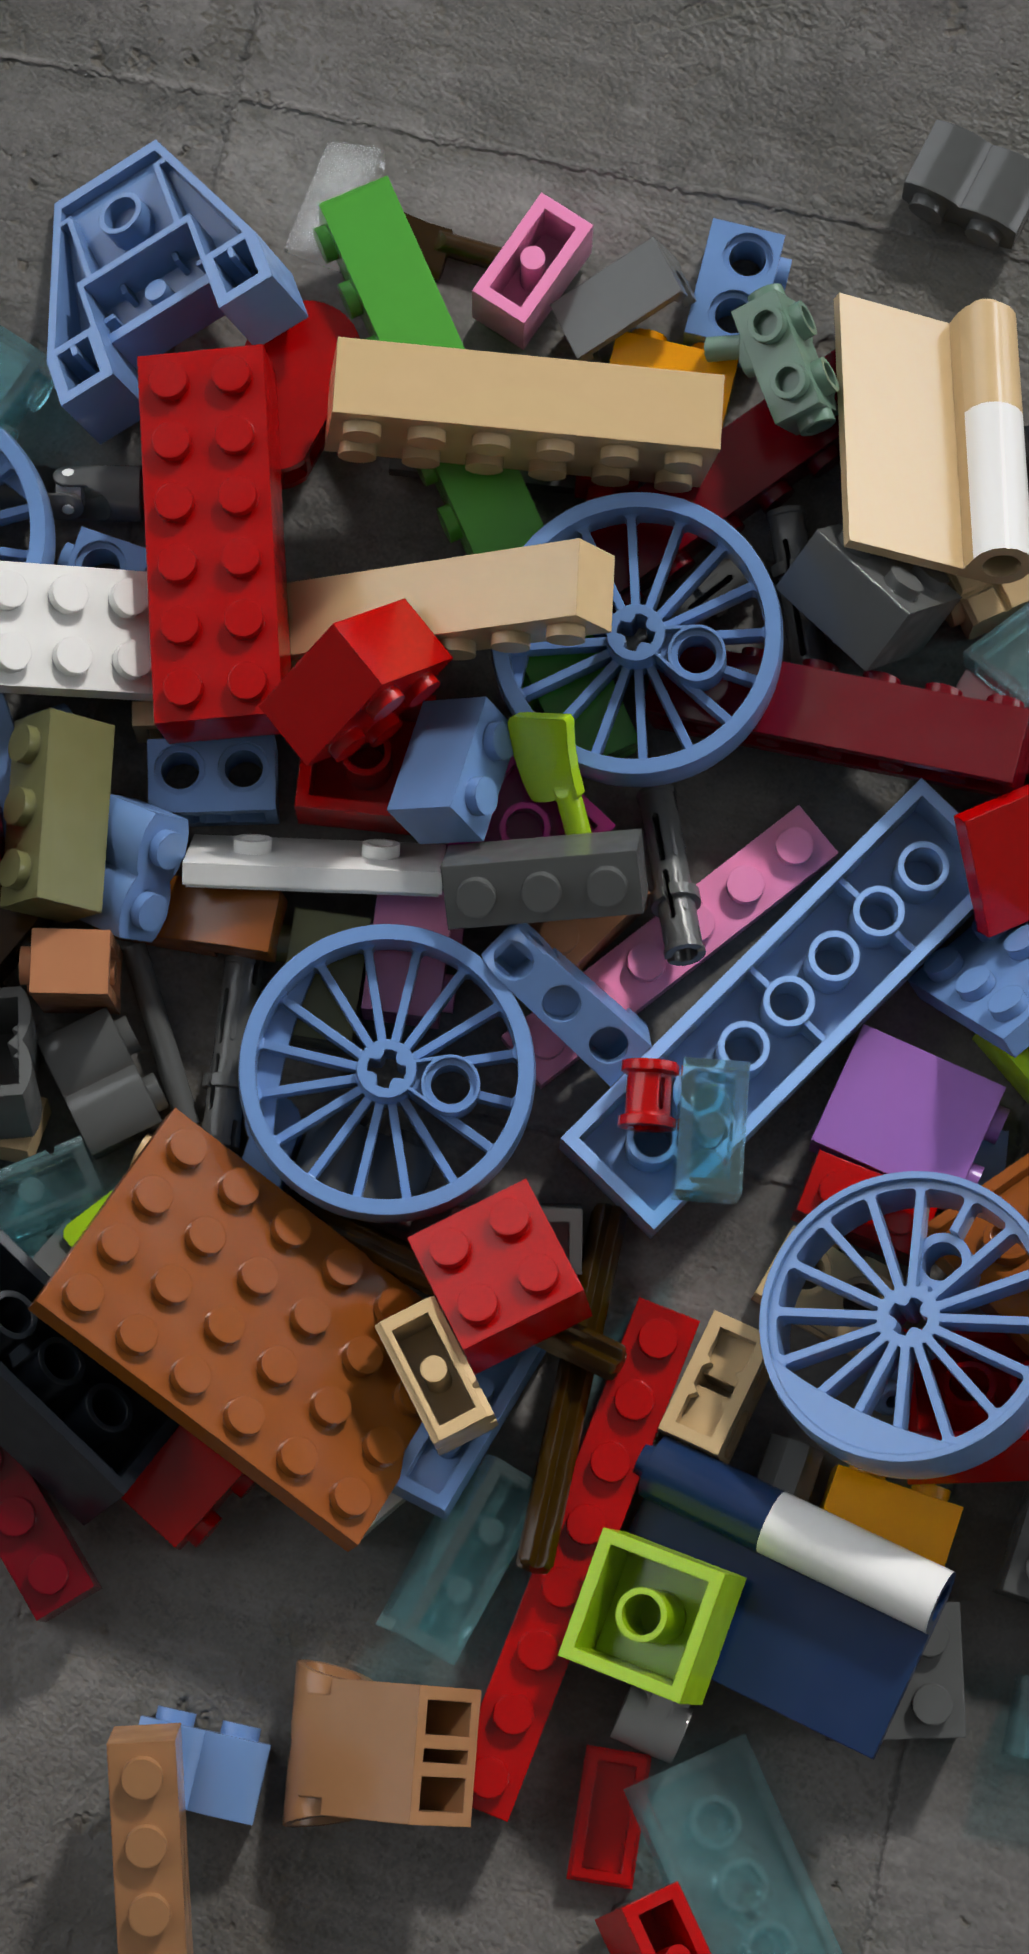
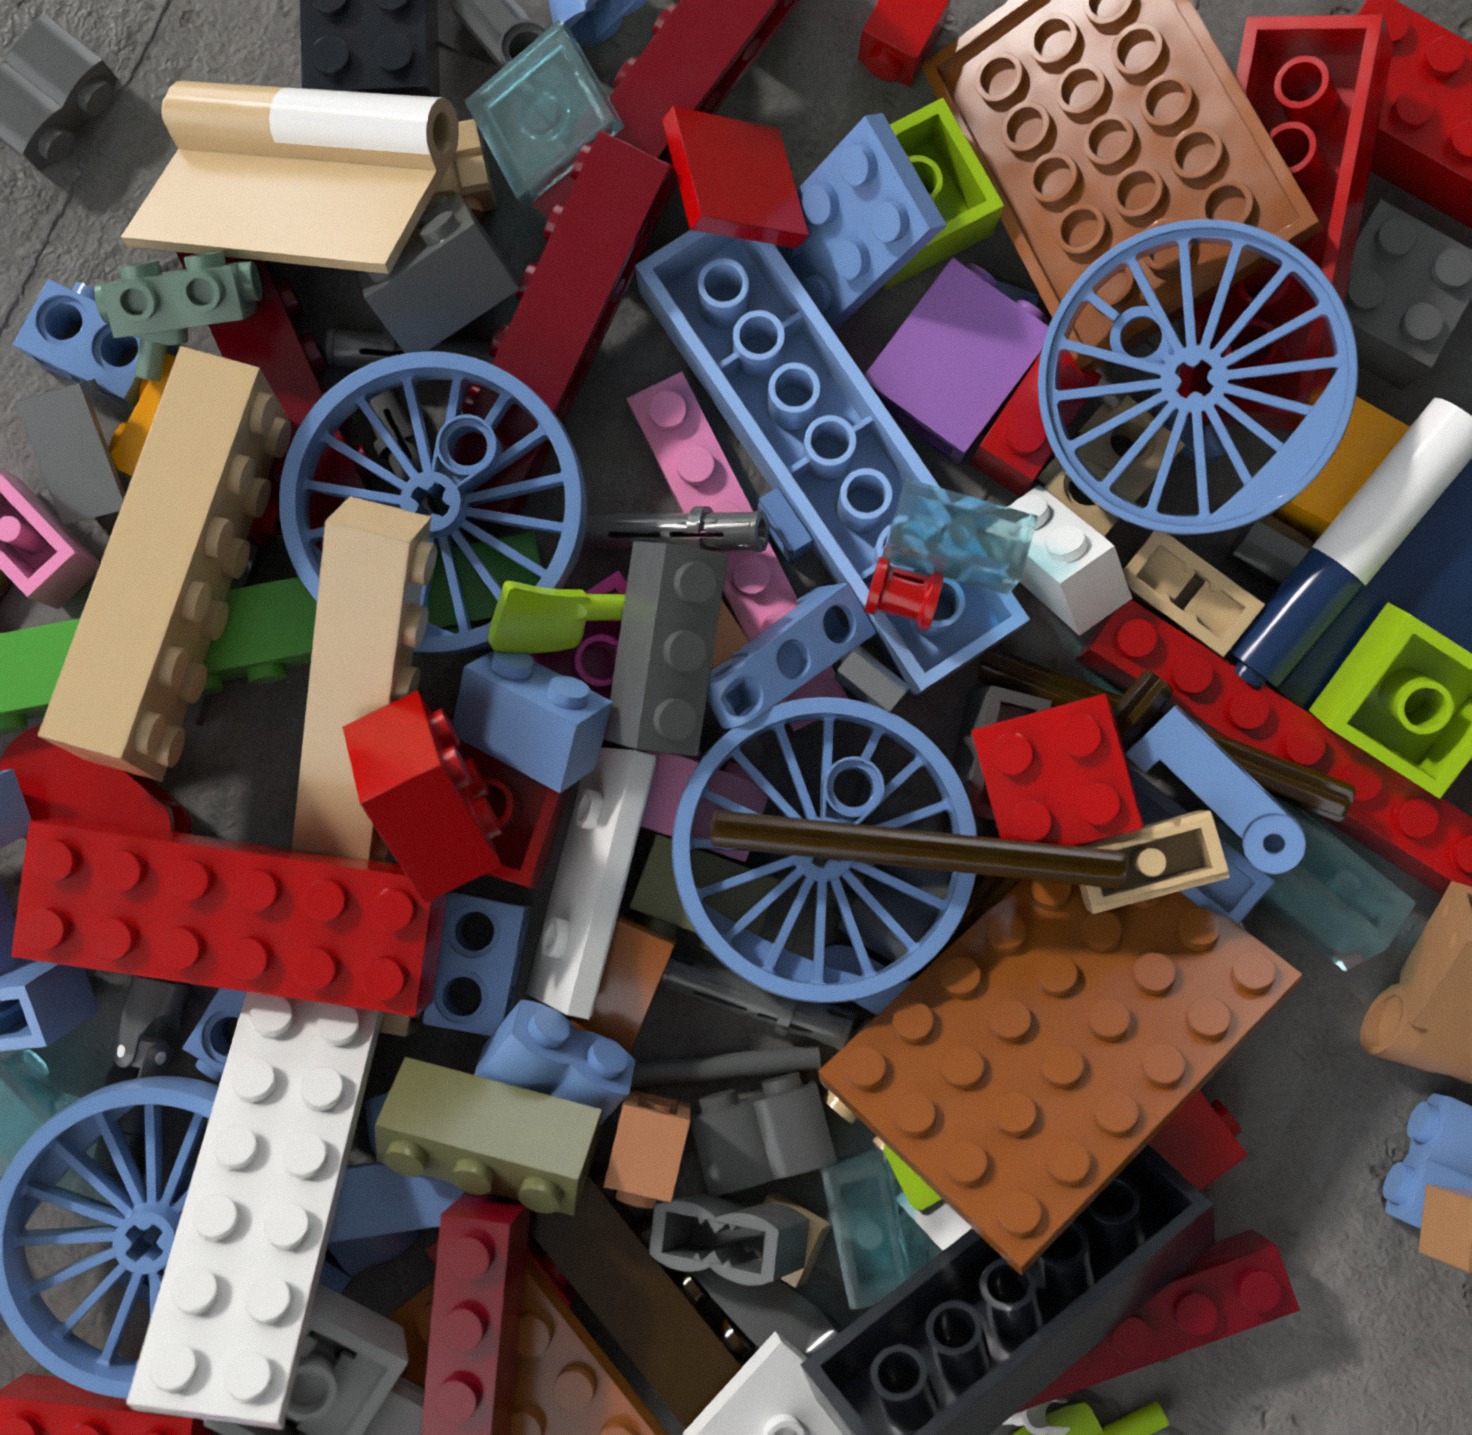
camera: 75 degrees left, 5 degrees up
(401, 1148) = (919, 849): none -> dark brown axle
(525, 1438) = (1269, 832): none -> medium blue leg
(561, 1091) = (870, 680): none -> dark grey slope
(701, 980) = (785, 526): none -> medium blue tile
(722, 1252) = (1070, 564): none -> white brick

